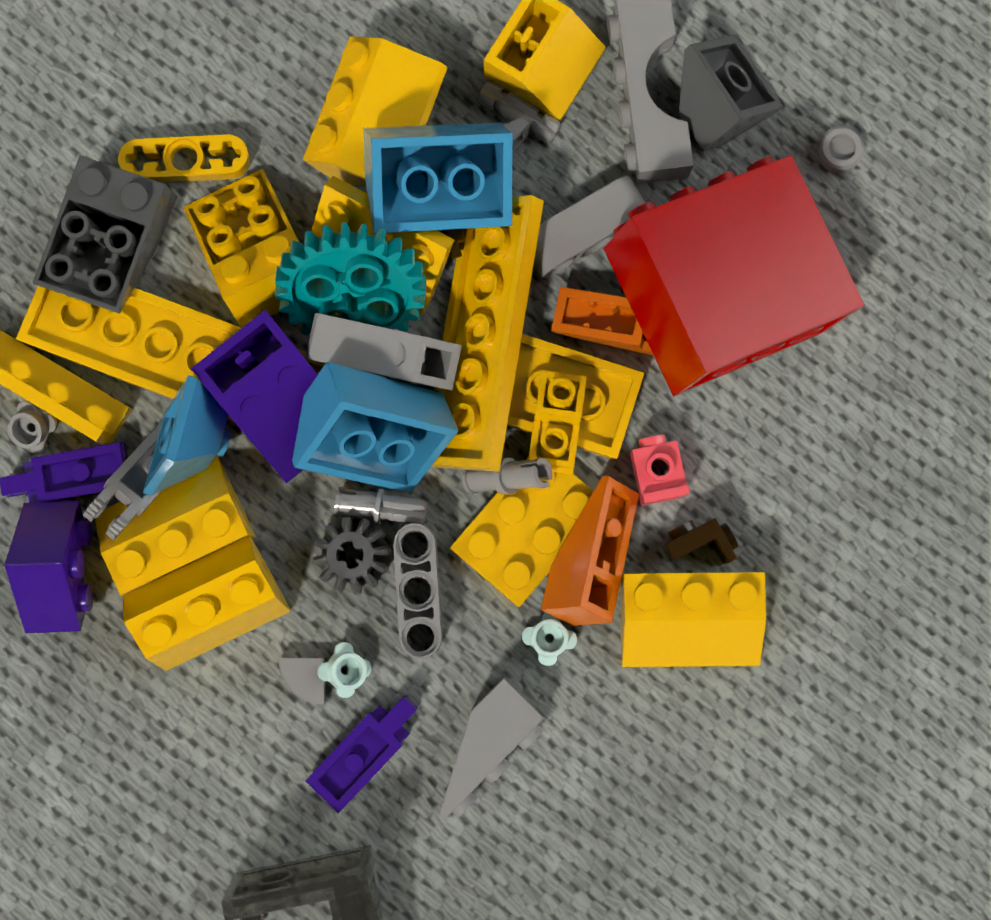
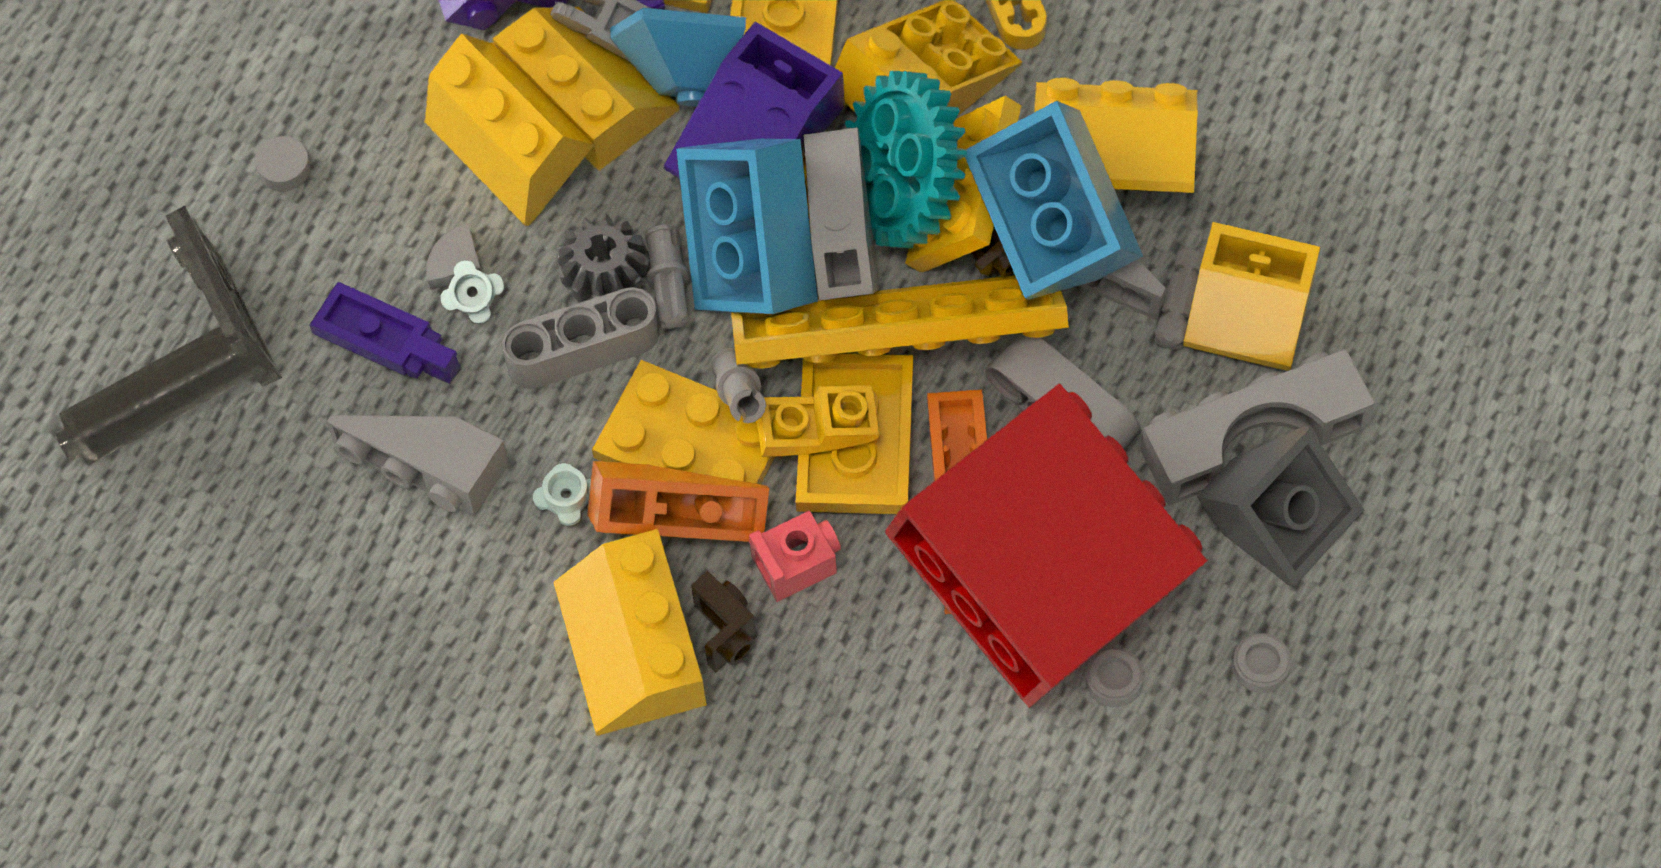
camera: 75 degrees right, 20 degrees down
(169, 801) = (282, 163): none -> light grey tile

